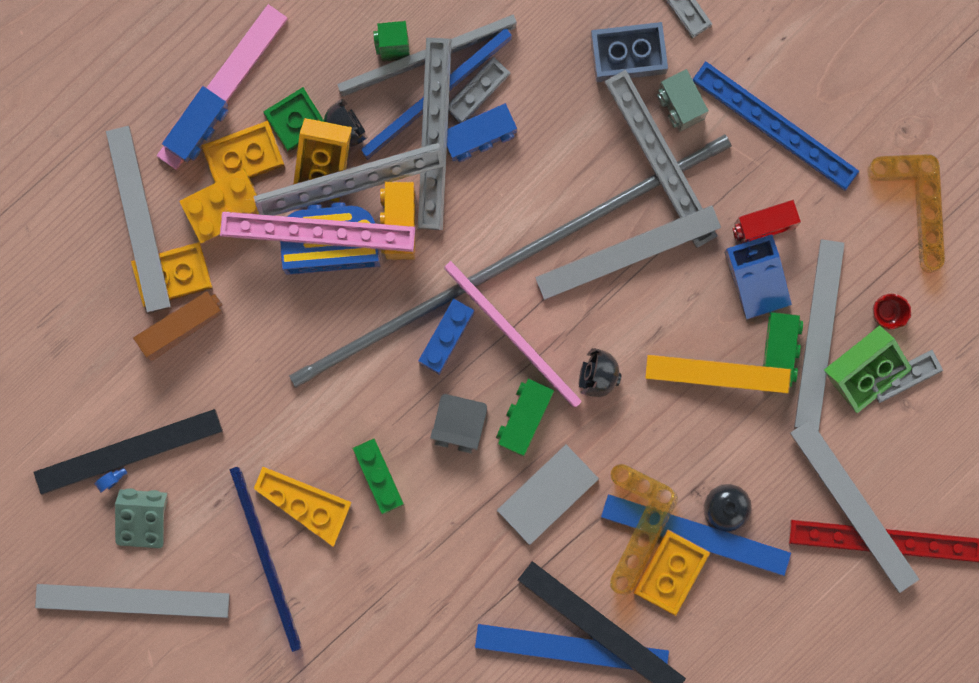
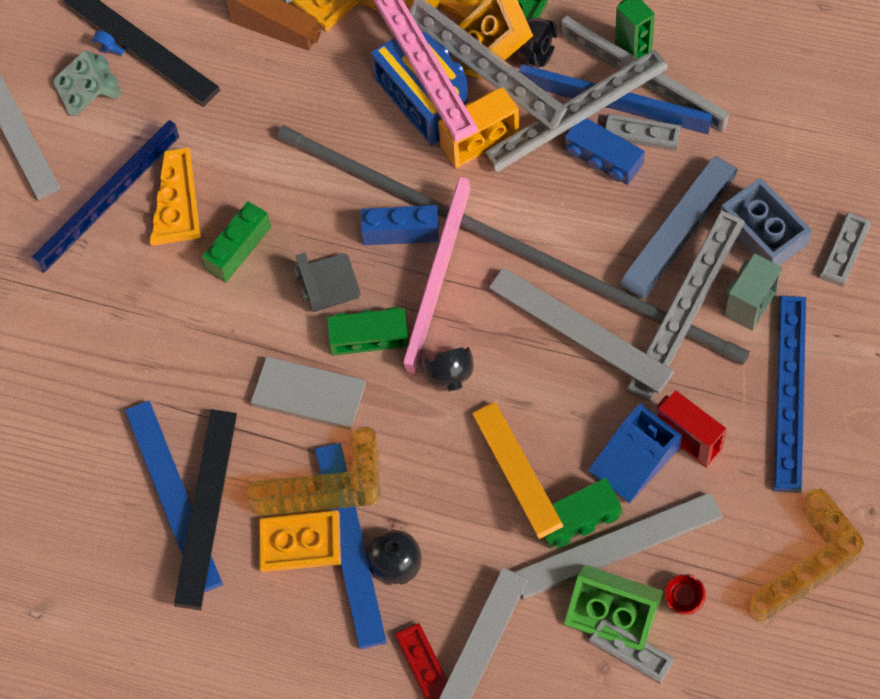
camera: 65 degrees right, 20 degrees down
(585, 117) = (678, 227): none -> sand blue beam

